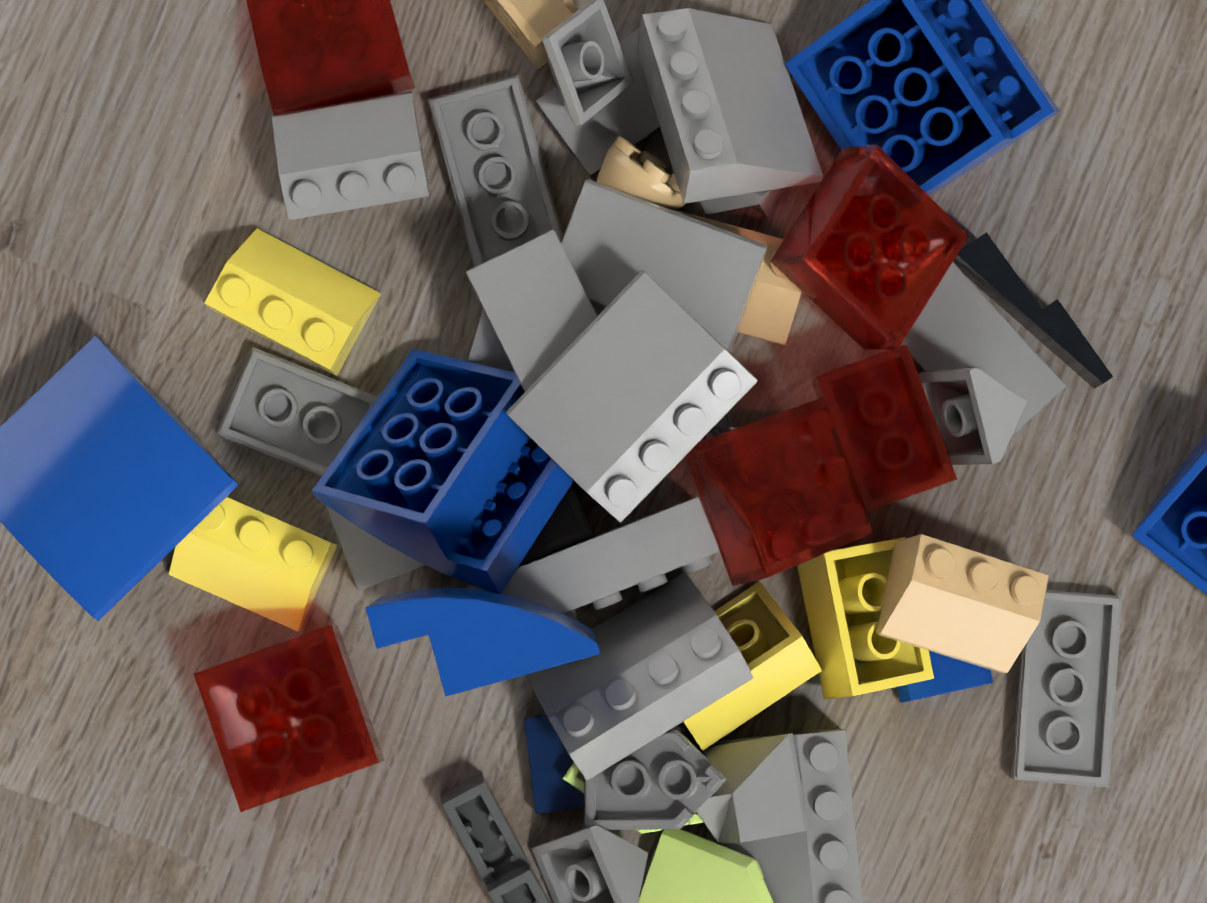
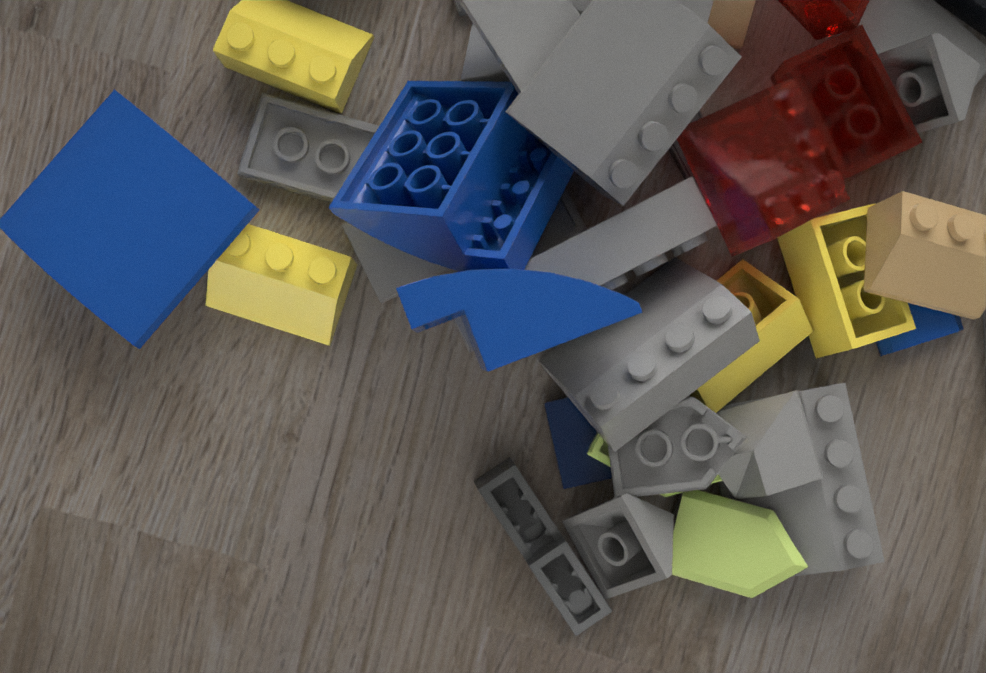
camera: 15 degrees left, 0 degrees up
(288, 717) = (327, 422): clear red slope -> none

